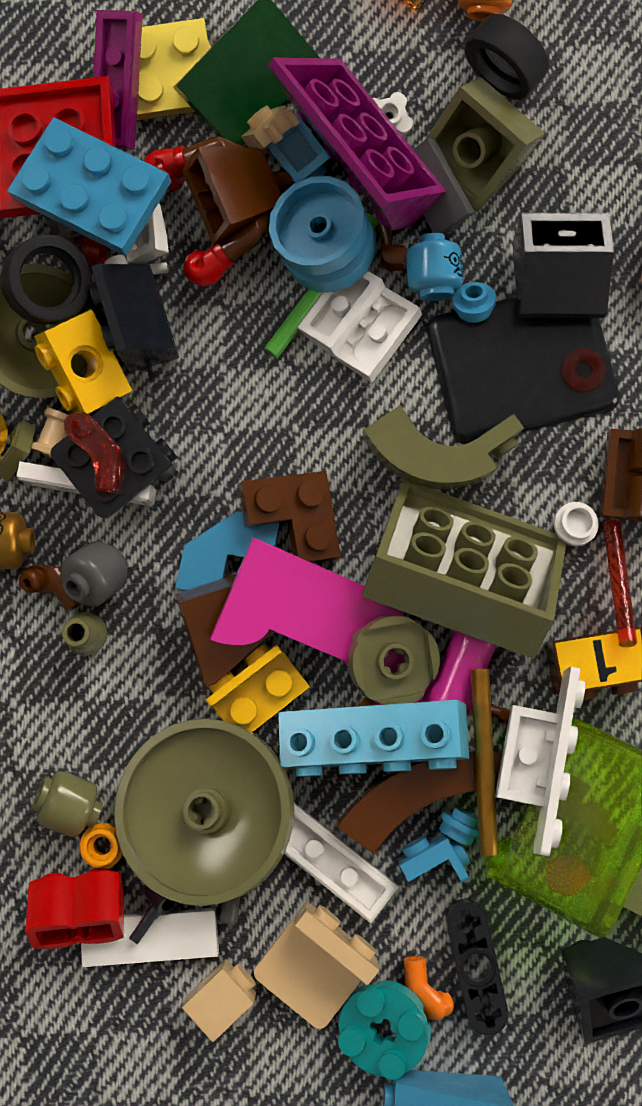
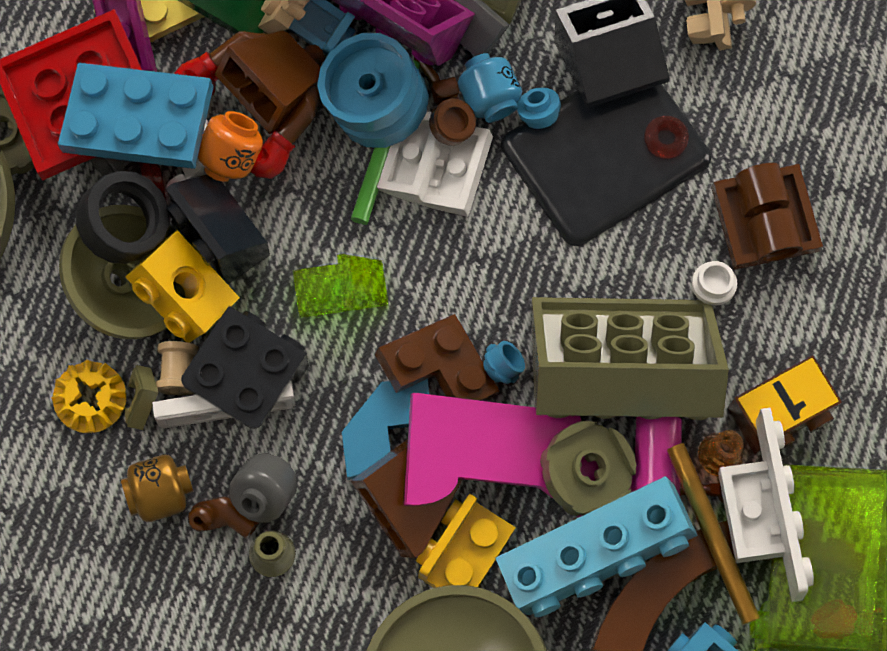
camera: 25 degrees left, 10 degrees down
(100, 447) = (232, 356): clear red arm -> none
(168, 244) = (230, 146): none -> orange head
(231, 409) = (340, 287): none -> clear neon green slope
(354, 531) = (503, 362): none -> dark azure plate
(387, 289) = (452, 122): none -> reddish brown tile
(434, 465) = (556, 273): olive arch -> none
(460, 825) = (713, 610): dark azure plate -> none
(511, 684) = (713, 457): none -> clear orange cone
(620, 584) = (777, 323): clear red bar -> none

